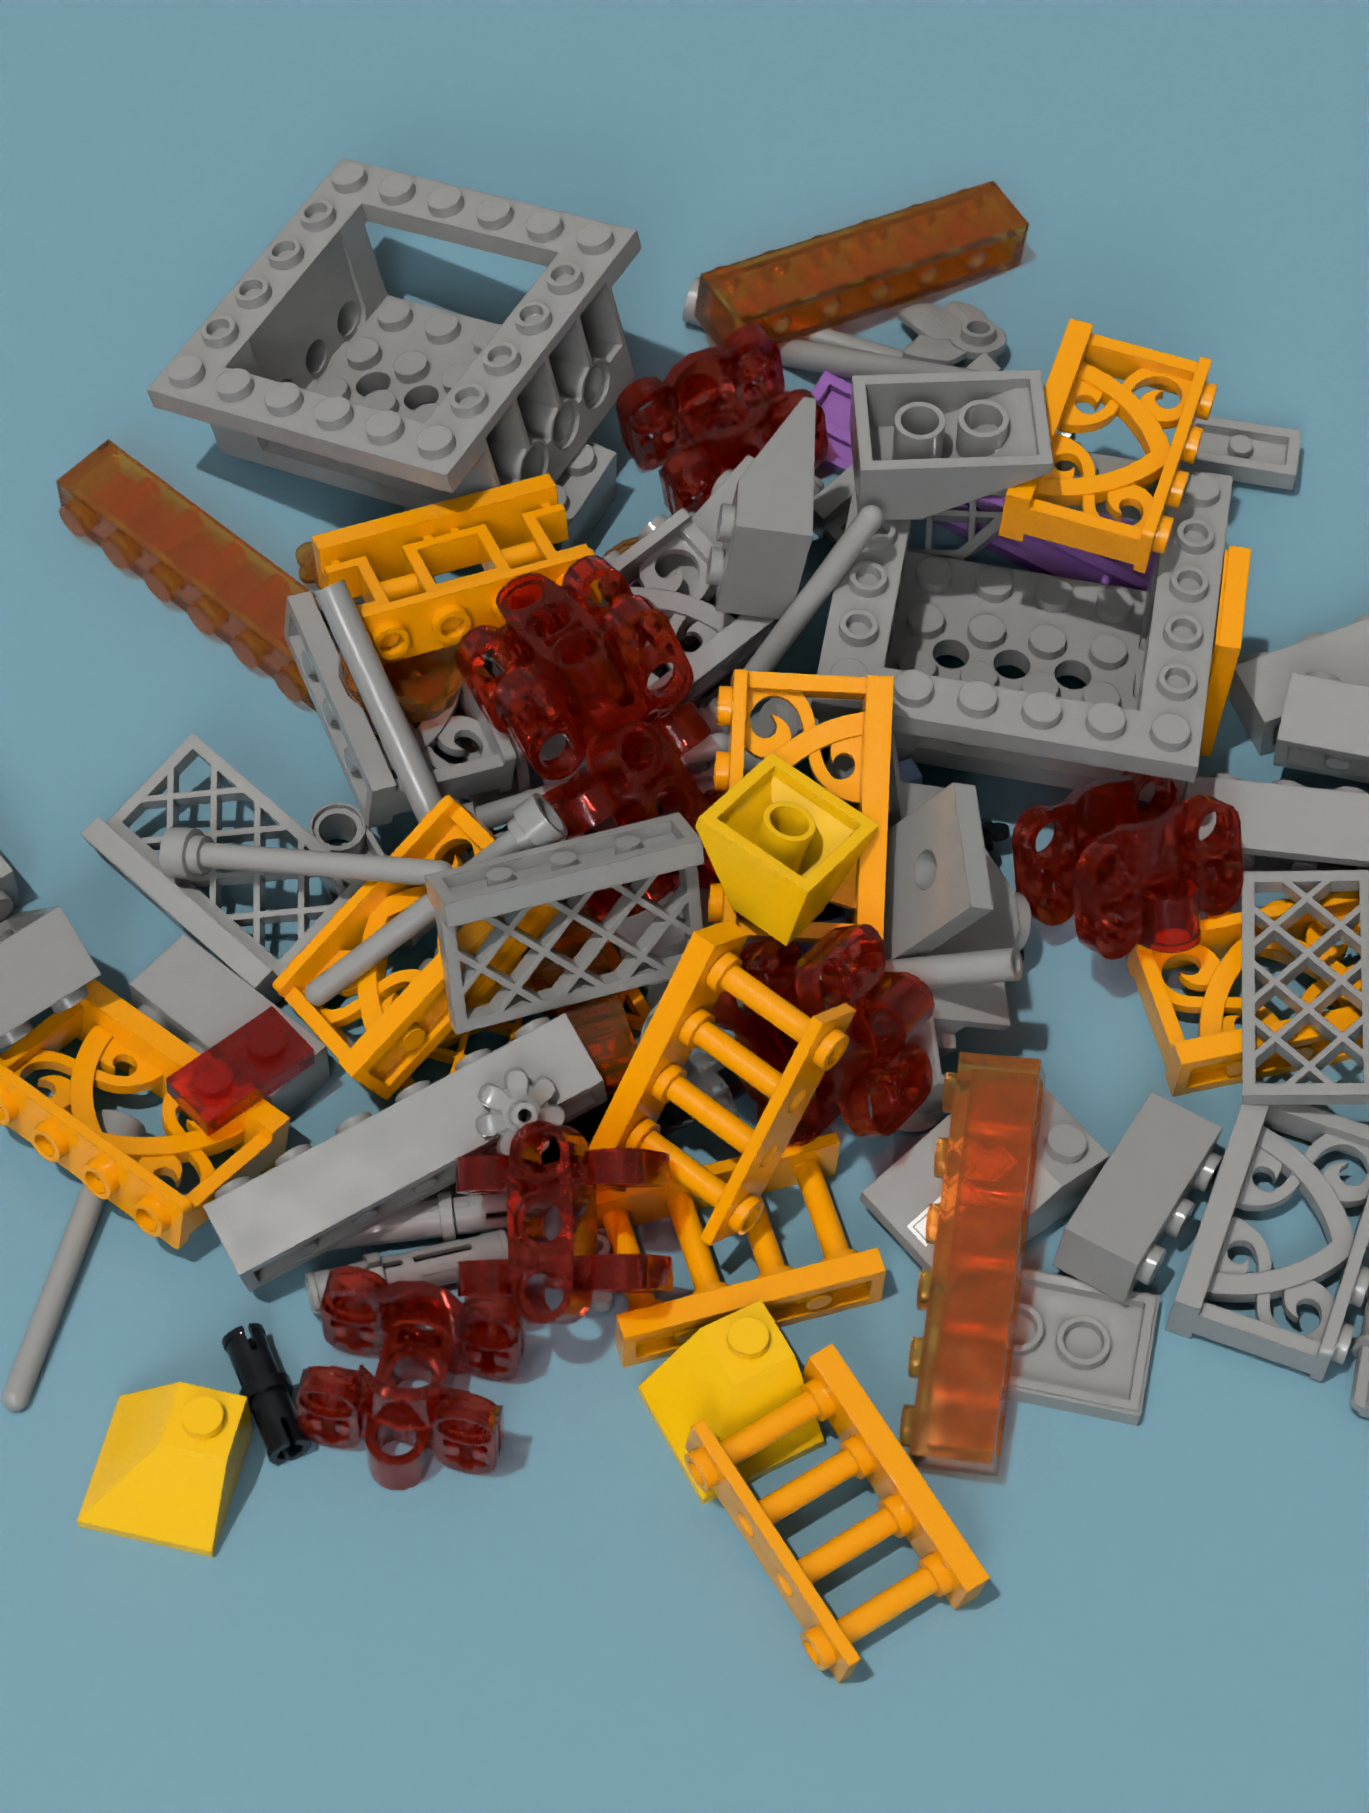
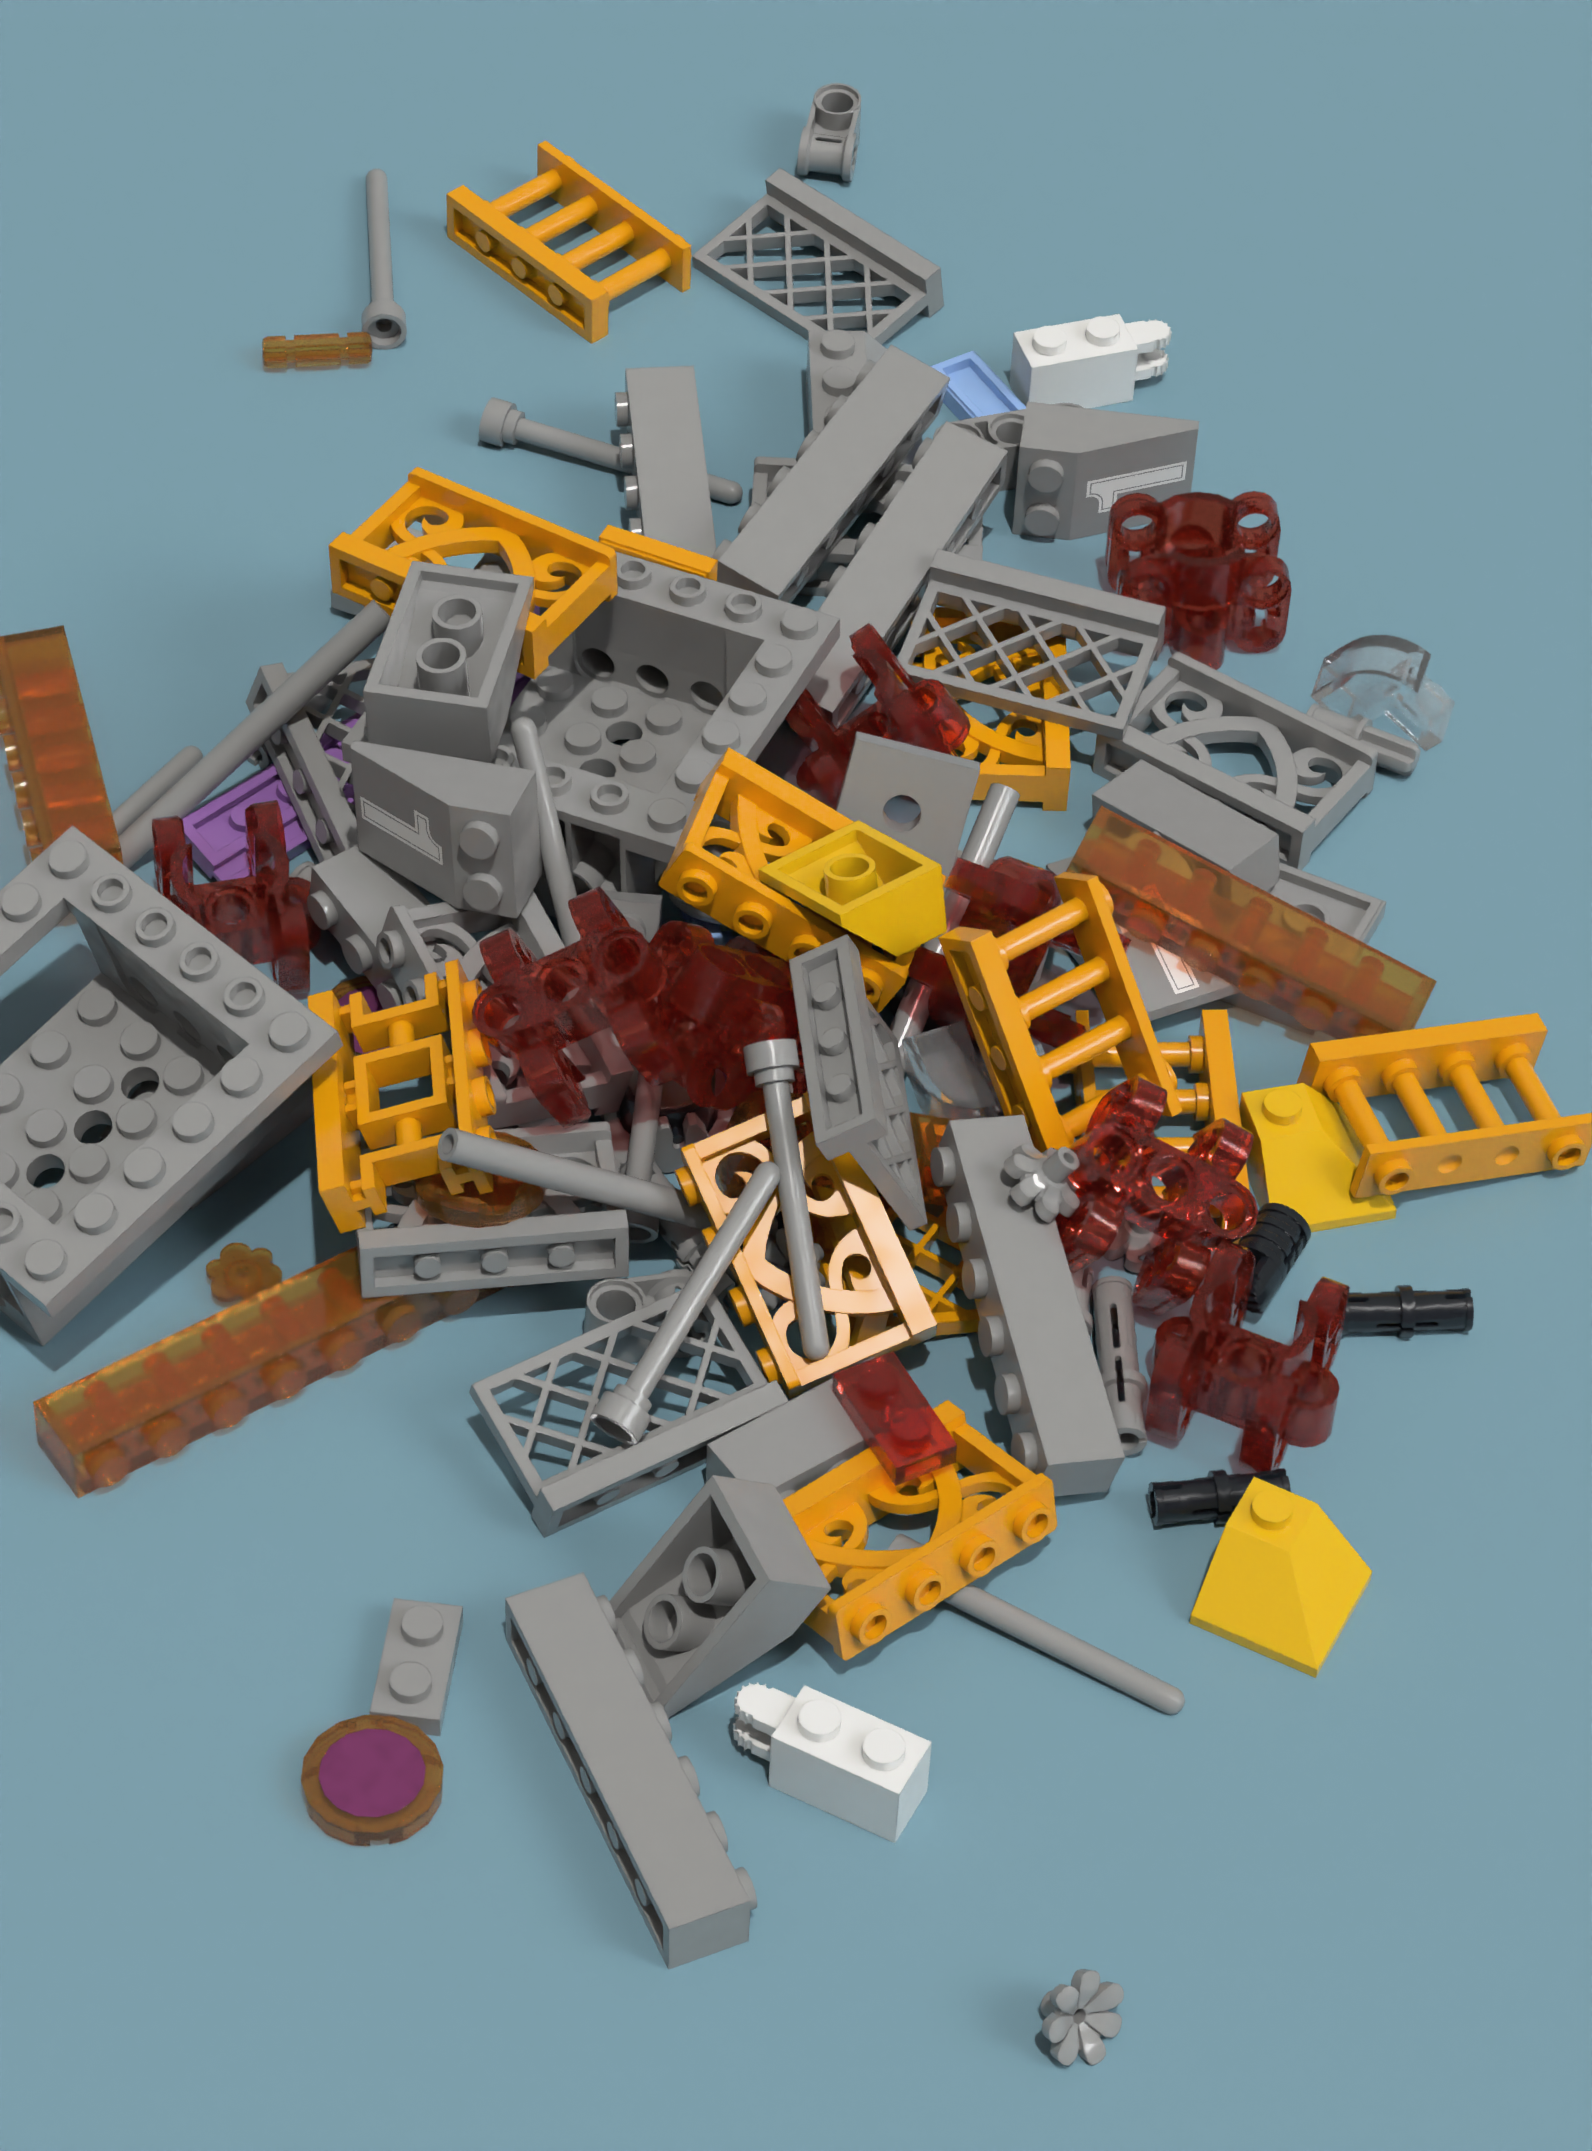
camera: 75 degrees left, 10 degrees down
(557, 1526) = (1409, 1311): none -> black pin
(578, 1376) = (1276, 1244): none -> black hinge
(951, 333) = (161, 728): light grey plate -> none

